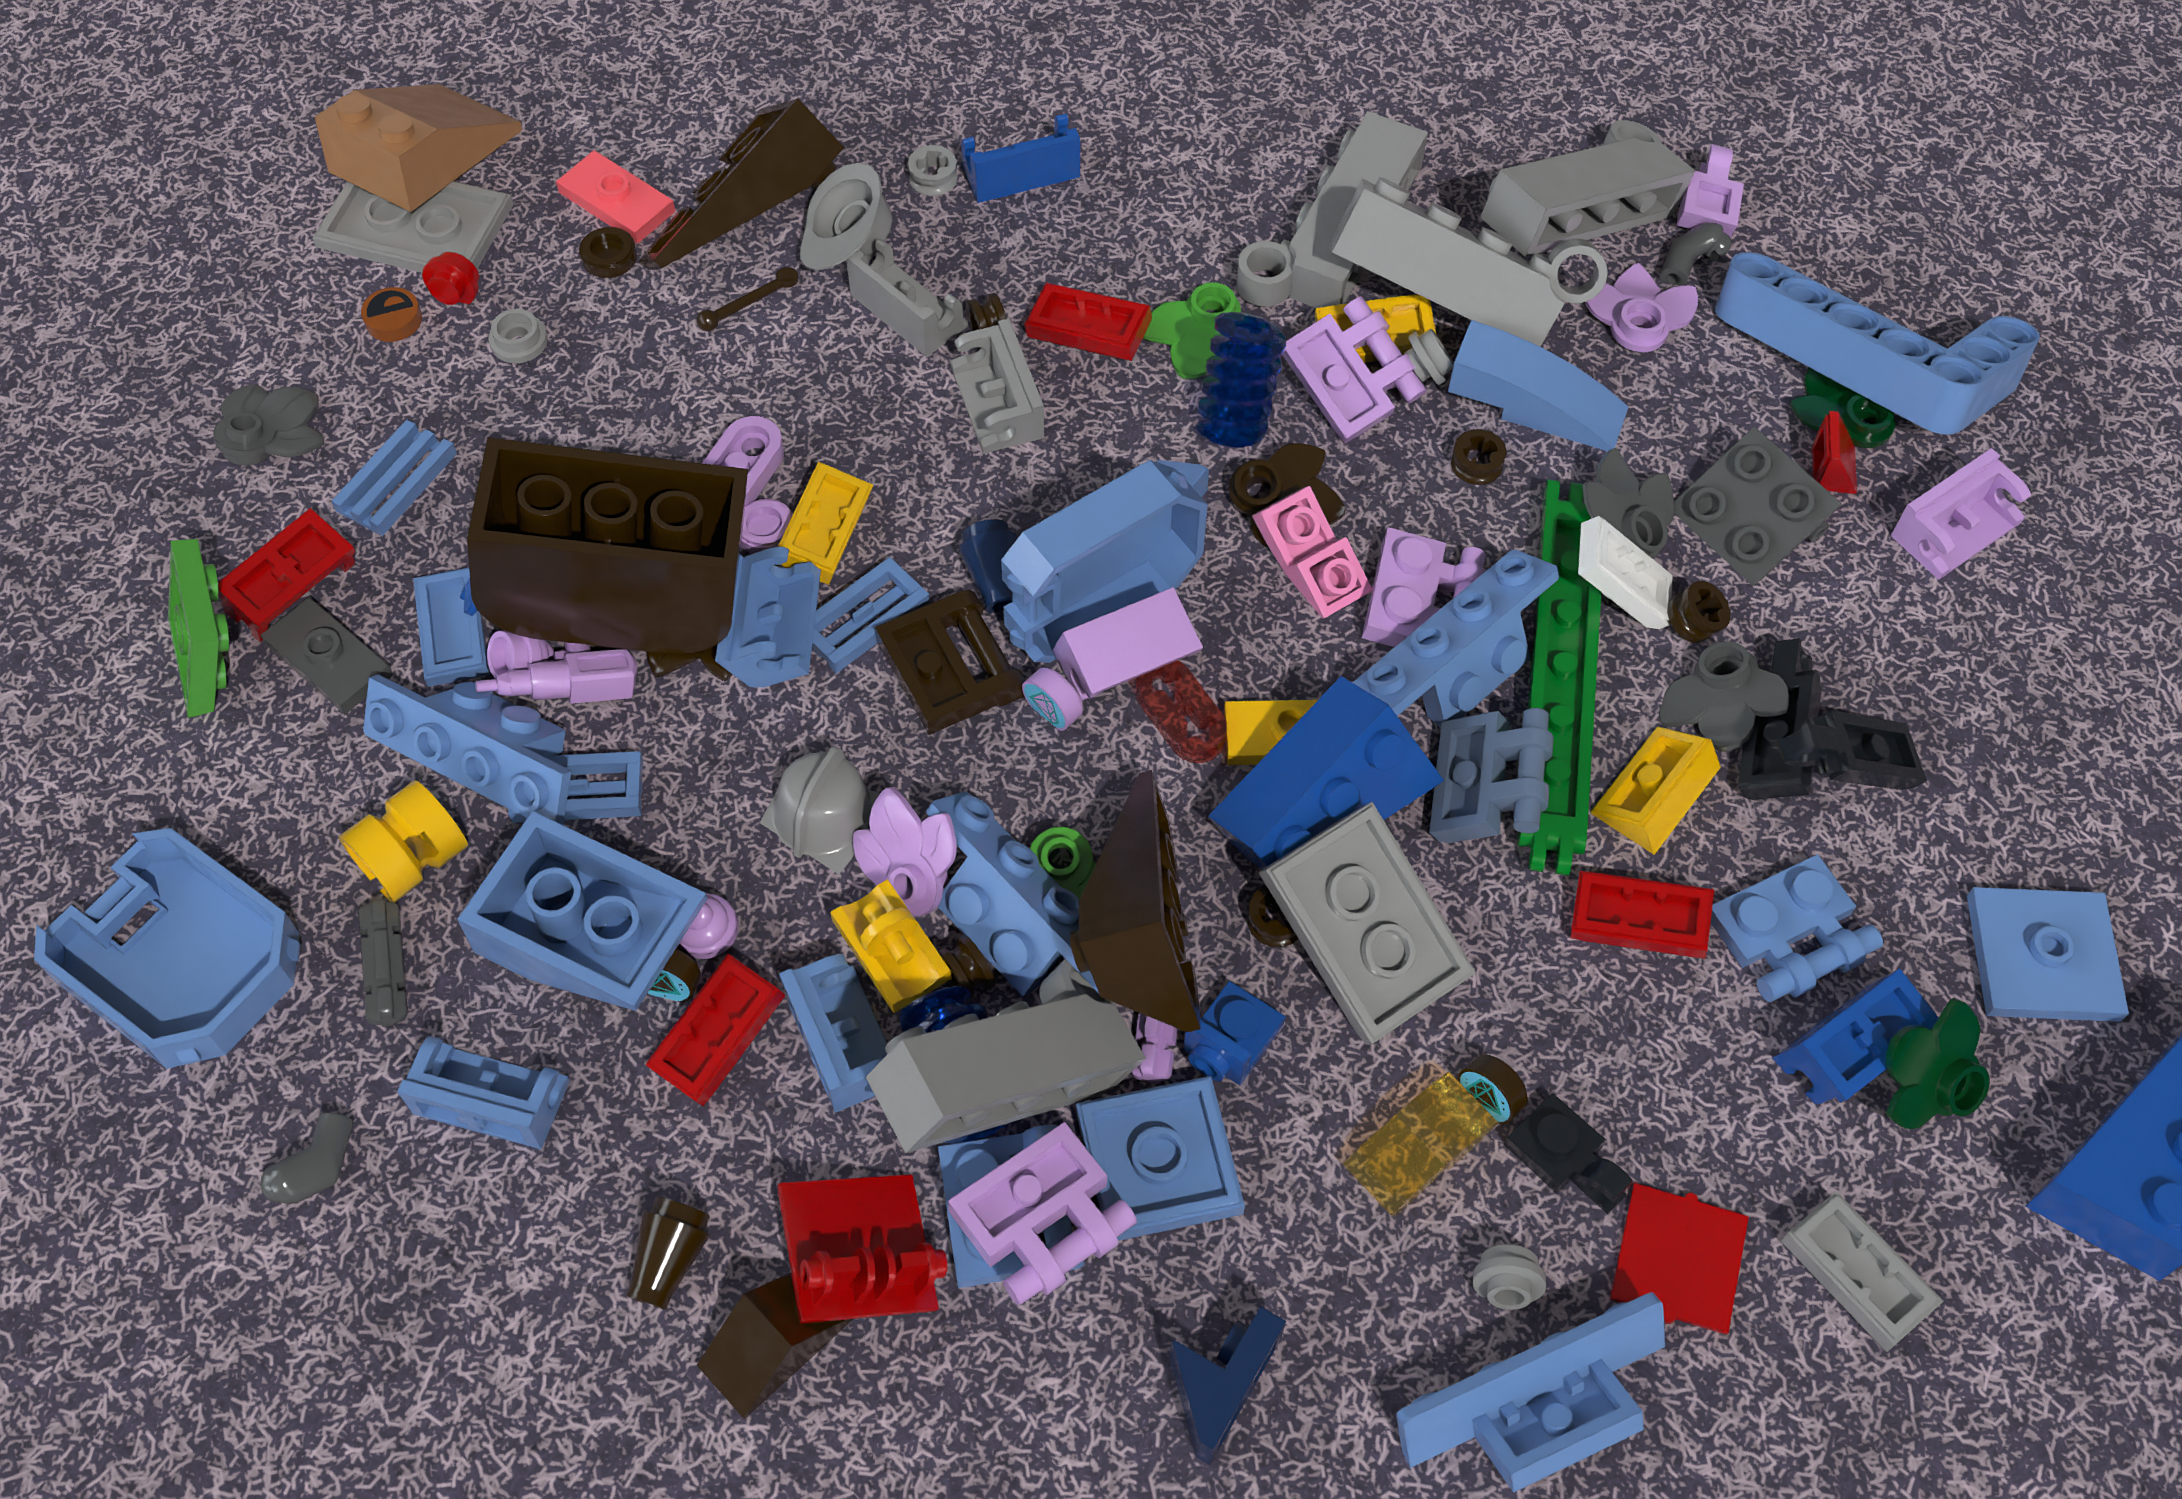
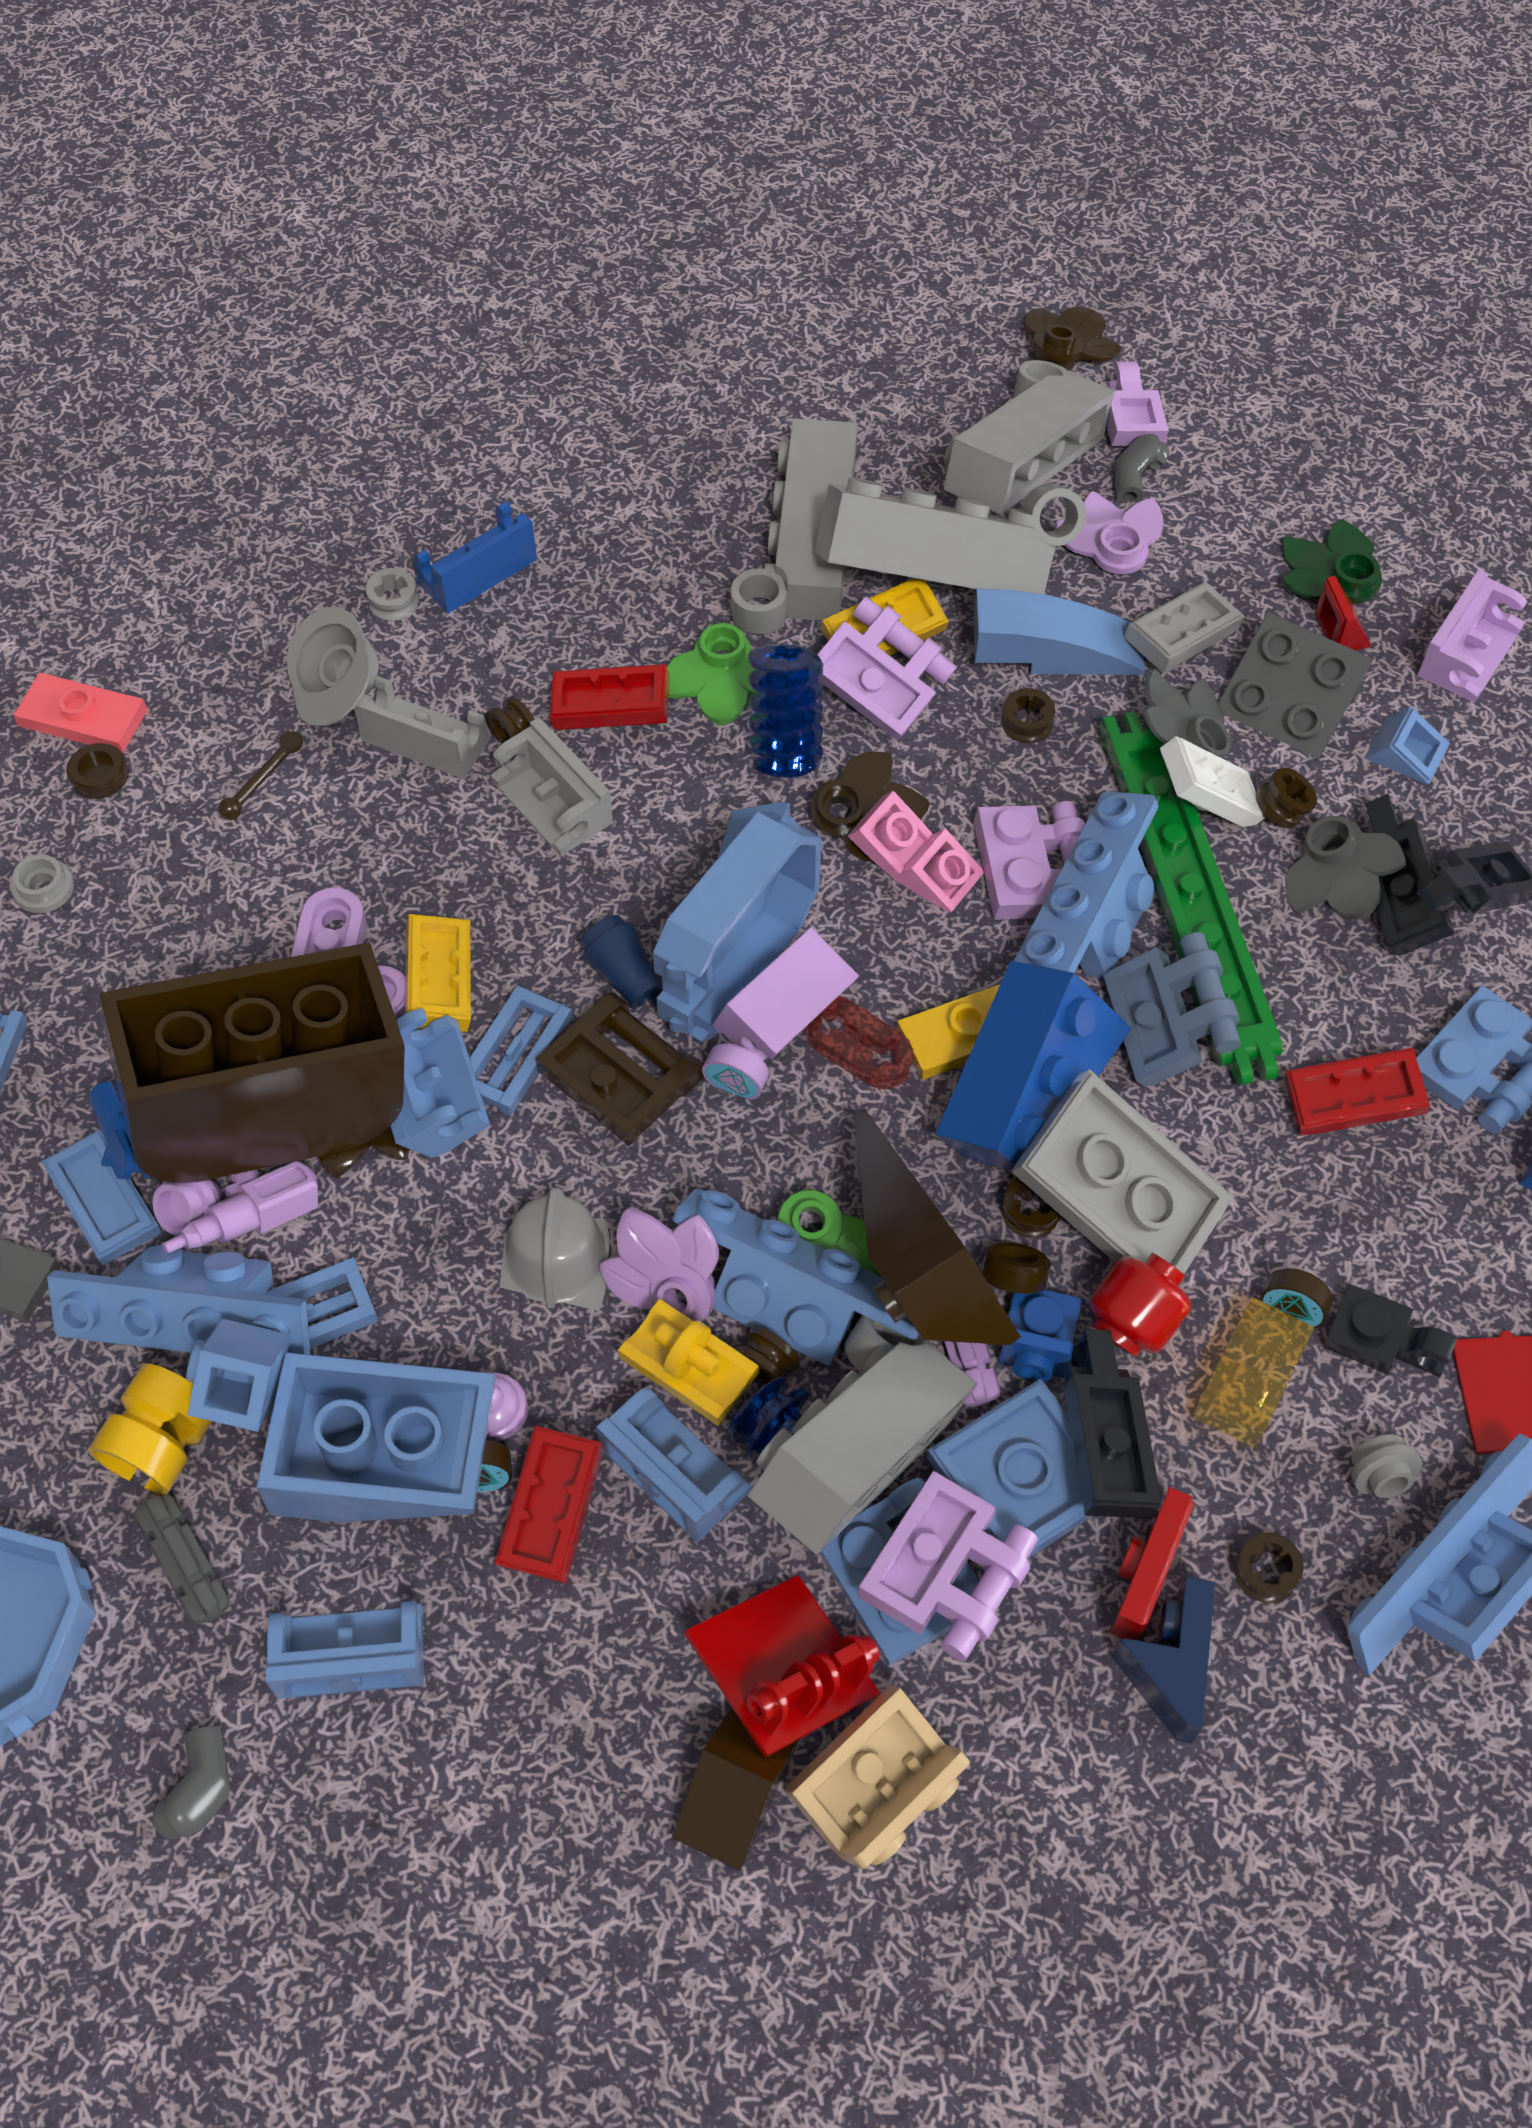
camera: 20 degrees left, 0 degrees up
(481, 814) = (236, 1374): none -> medium blue brick
(666, 1250) = (596, 1737): dark brown cone -> none
(769, 162) = (226, 636): dark brown wedge -> none
(897, 1383) = (877, 1780): none -> tan bracket
(1233, 966) = (1016, 1268): none -> dark brown tile
(1236, 1284) = (1148, 1564): none -> red plate
(1247, 1148) = (1109, 1432): none -> black hinge
(1334, 1040) = (1140, 1304): none -> red head
(1343, 1310) = (1286, 1581): none -> dark brown bush
(1429, 356) = (949, 634): light grey plate -> none
(1658, 787) = (1316, 970): yellow slope -> none
(1669, 418) = (1184, 627): none -> light grey plate
(1681, 109) = (1069, 336): none -> dark brown plate
(1850, 601) = (1408, 745): none -> medium blue slope
(1873, 354) = (1333, 511): medium blue beam -> none

